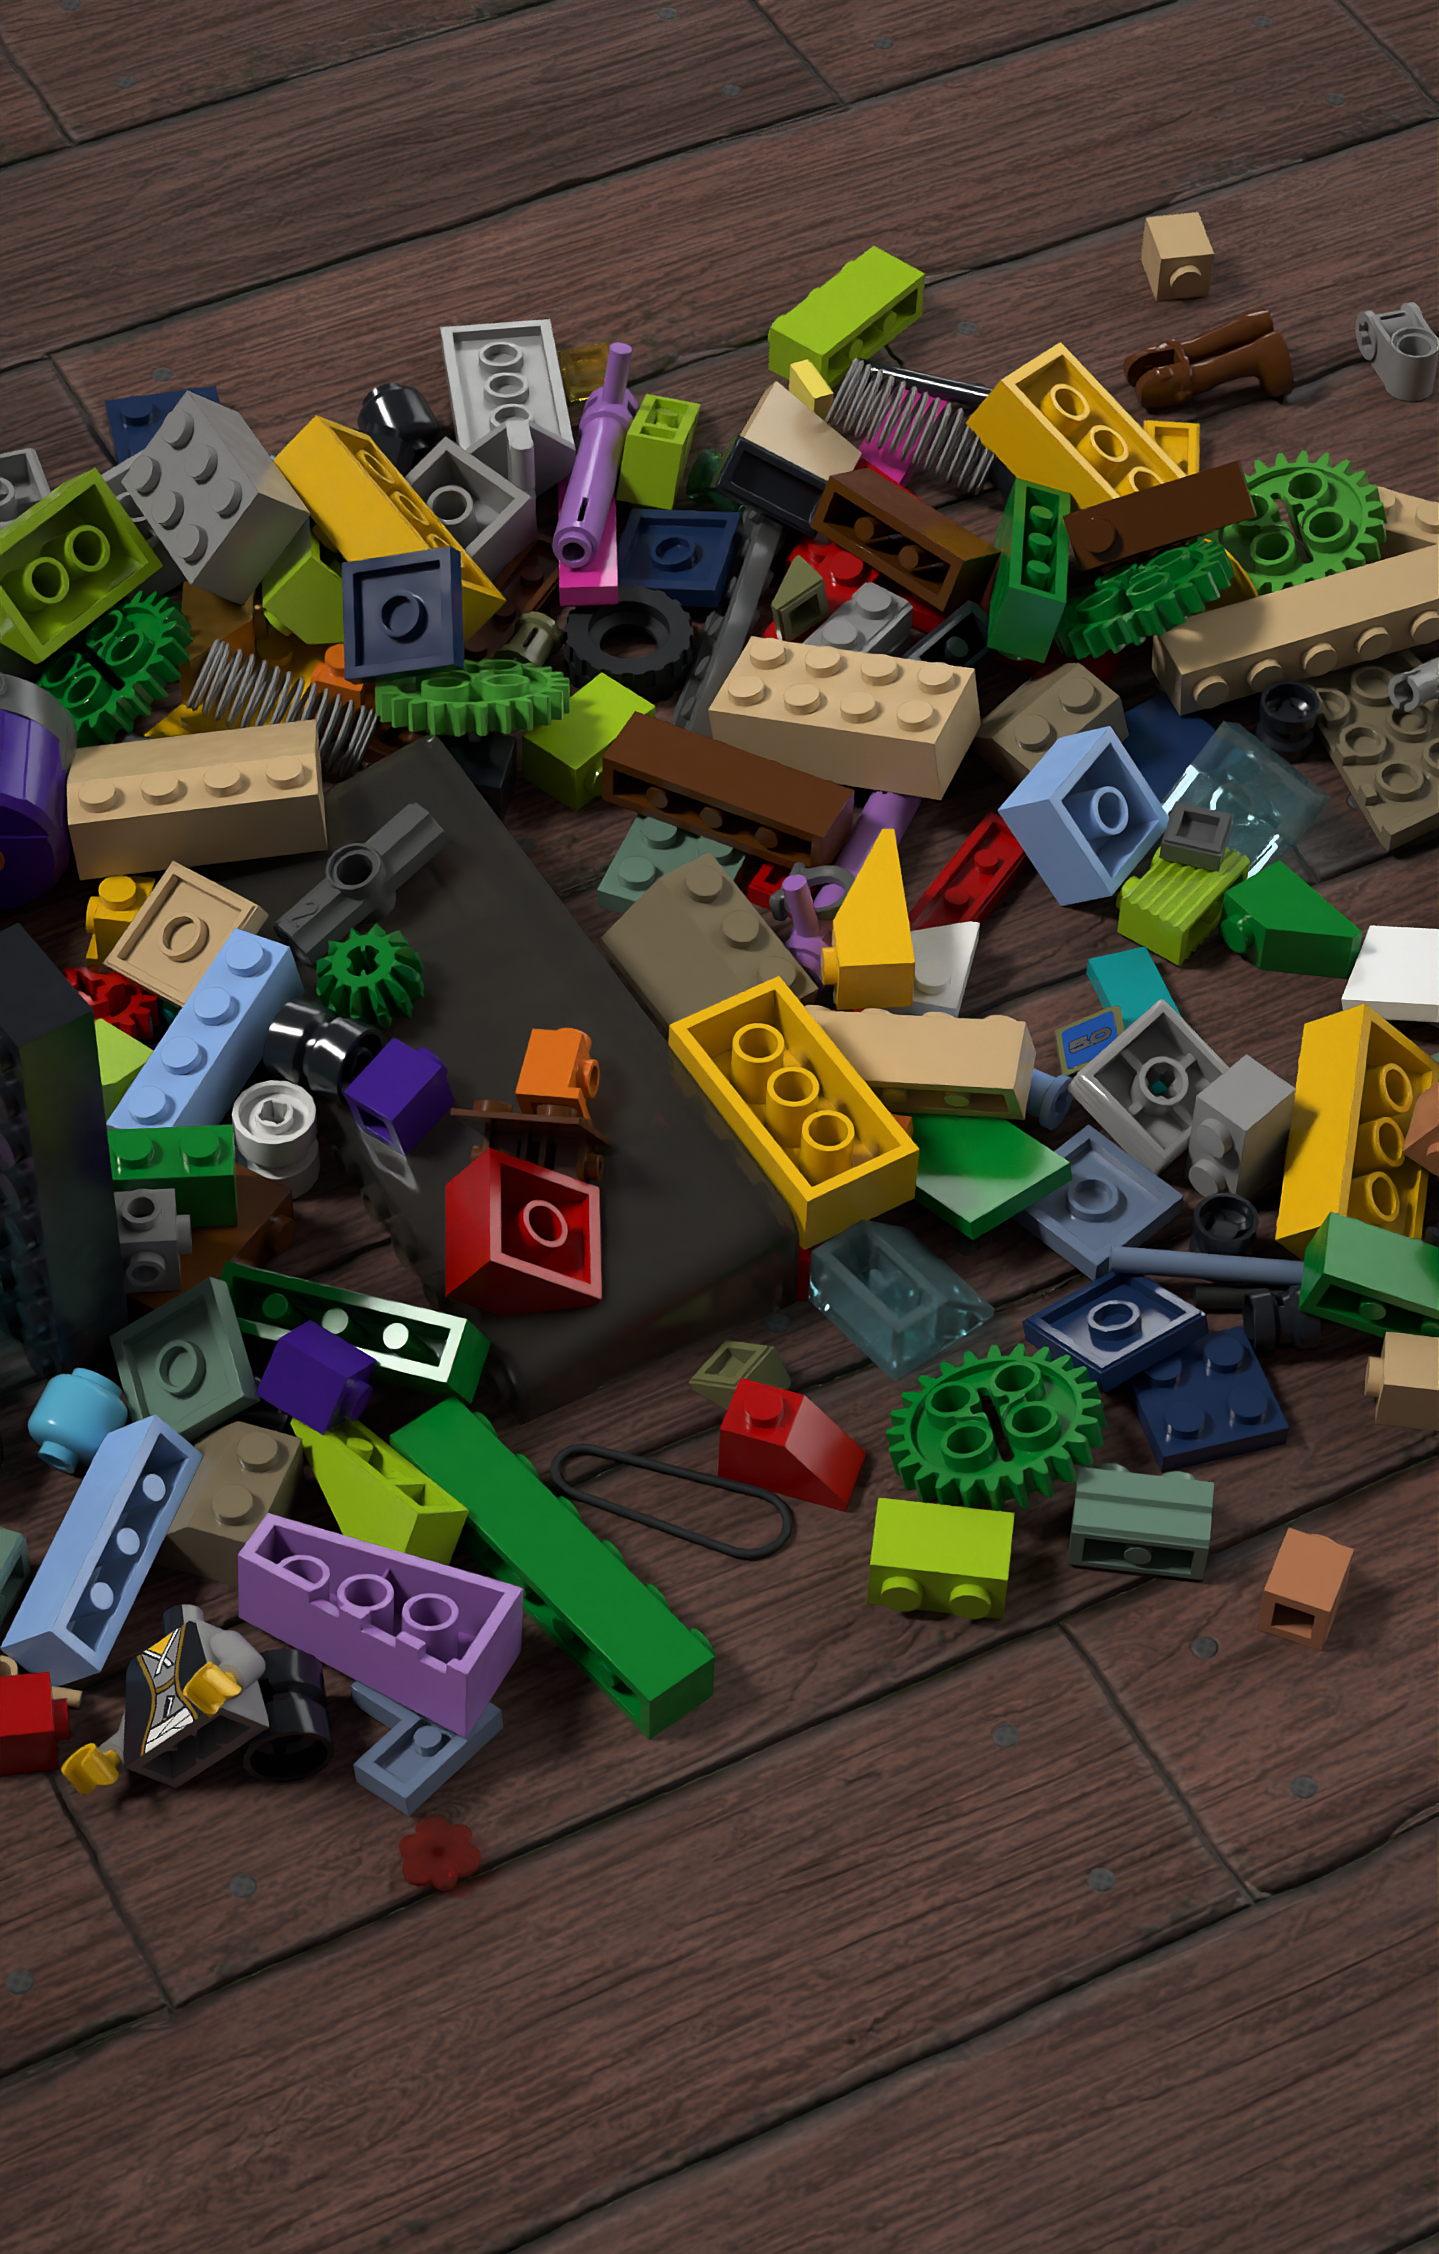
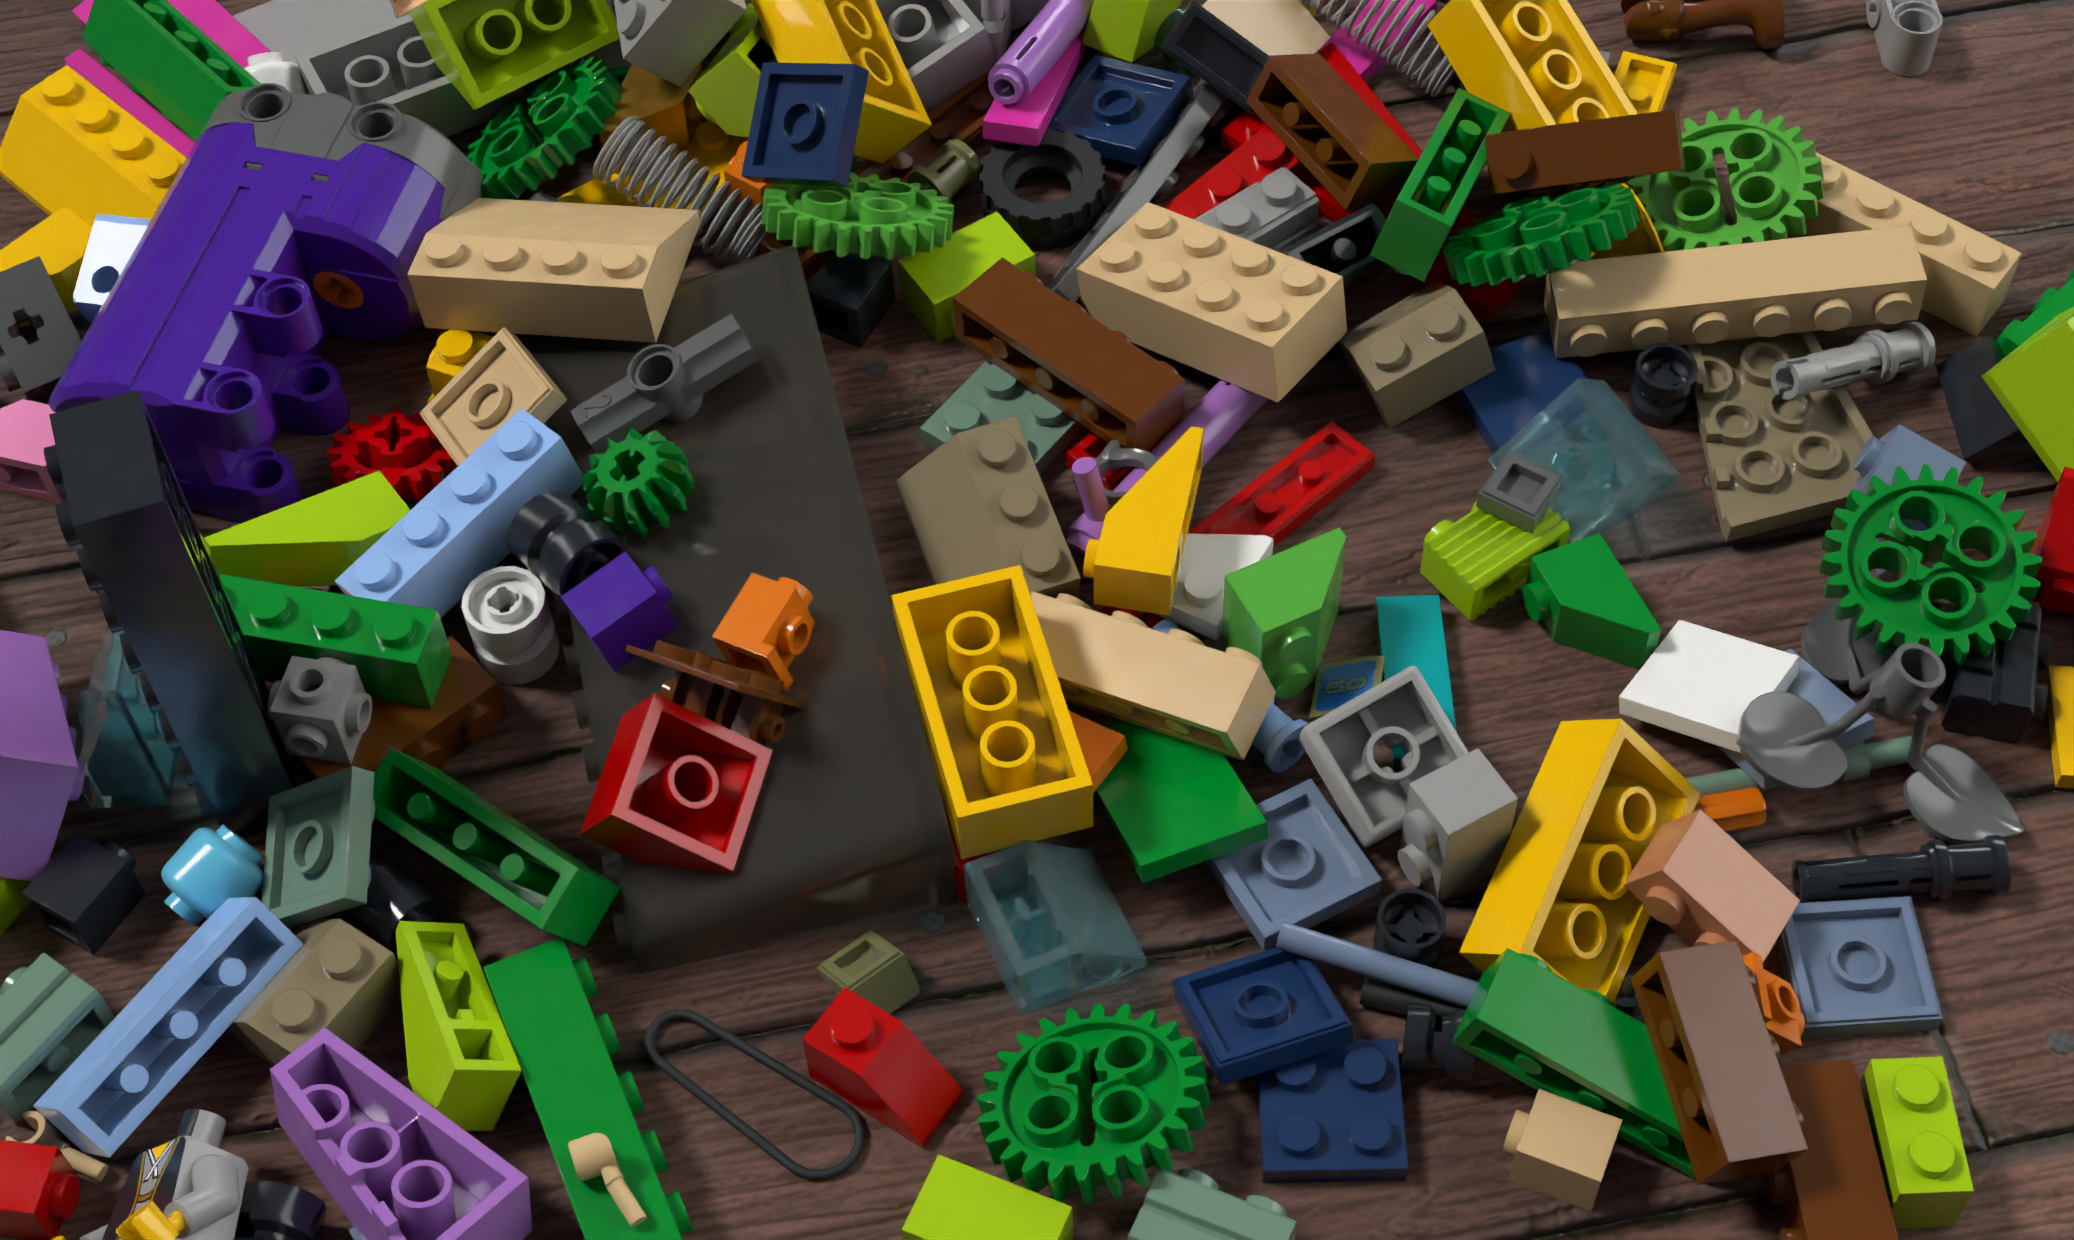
camera: 20 degrees right, 5 degrees up
(317, 1378) = (425, 892): dark purple brick -> none
(576, 1561) = (595, 1157): none -> tan hand
(799, 601) = (1204, 175): olive slope -> none
(1019, 973) = (1286, 610): none -> bright green slope
(1085, 816) = (1413, 448): light blue brick -> none

